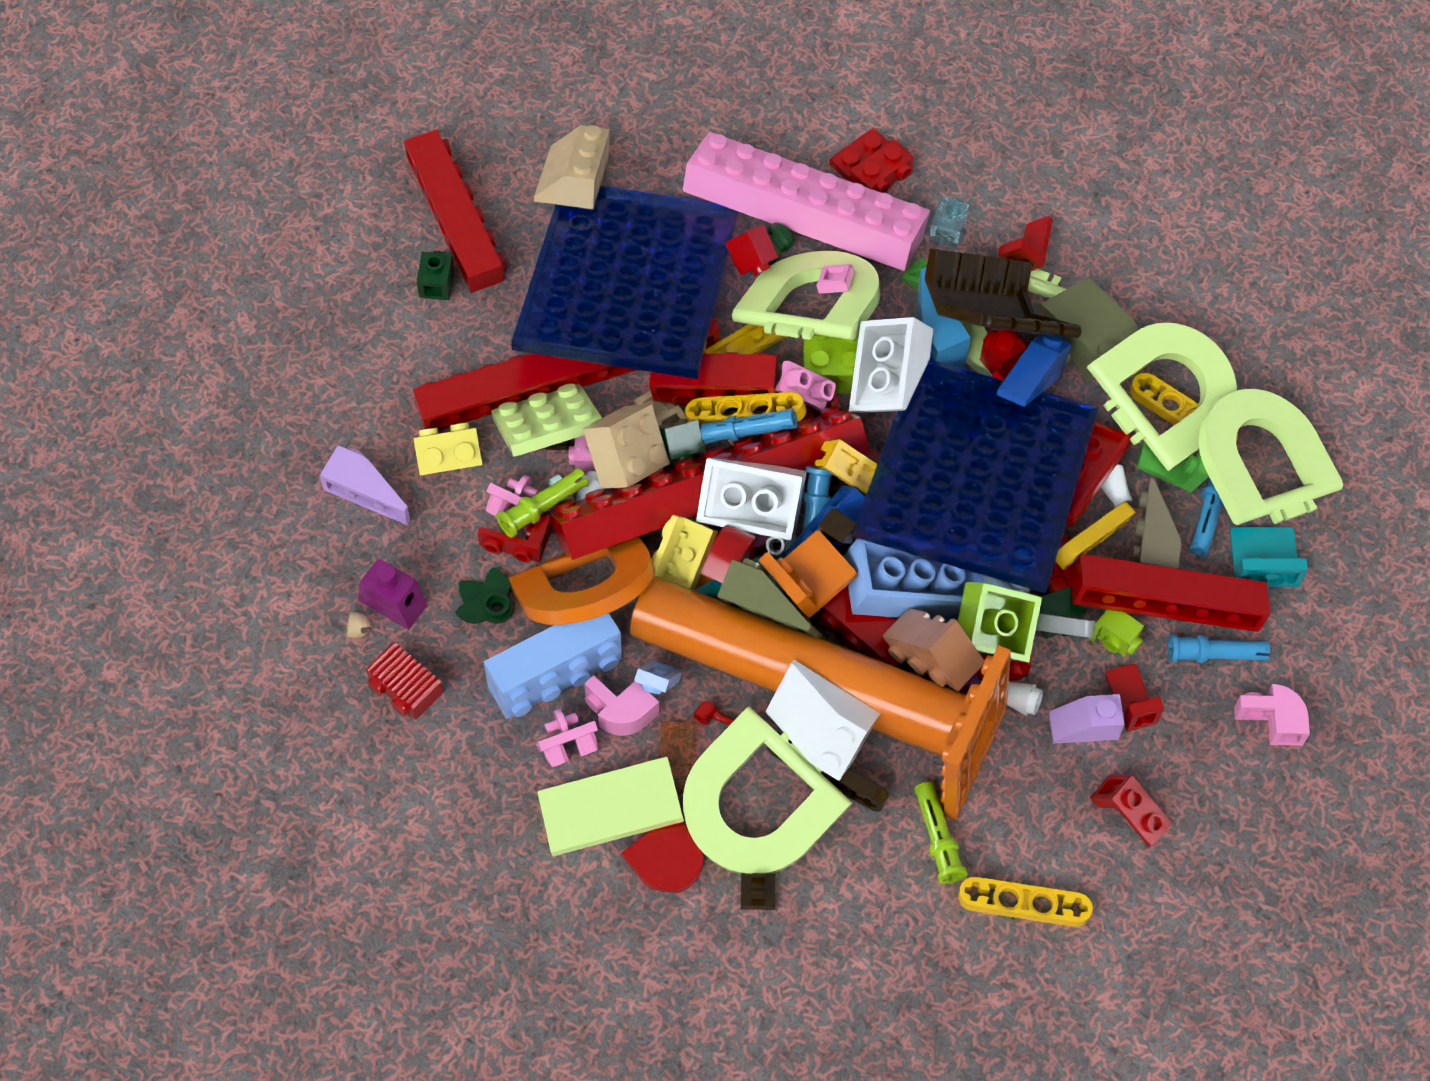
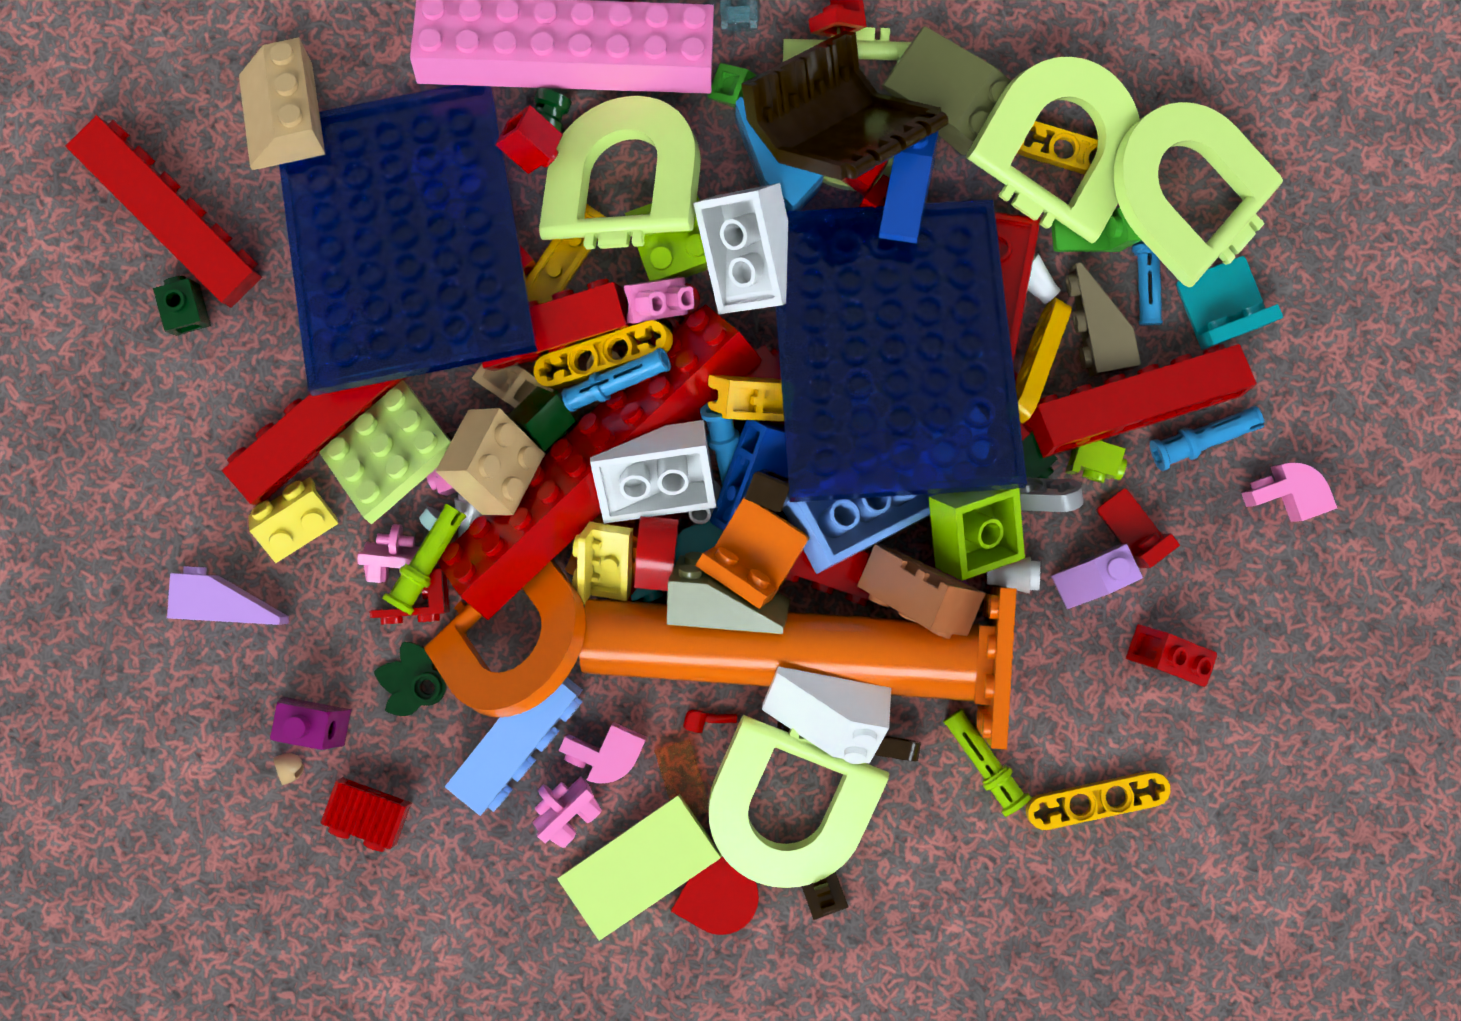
camera: 20 degrees left, 25 degrees up
(657, 676) = (632, 710): light blue plate -> none
(835, 278) = (640, 147): bright pink tile -> none

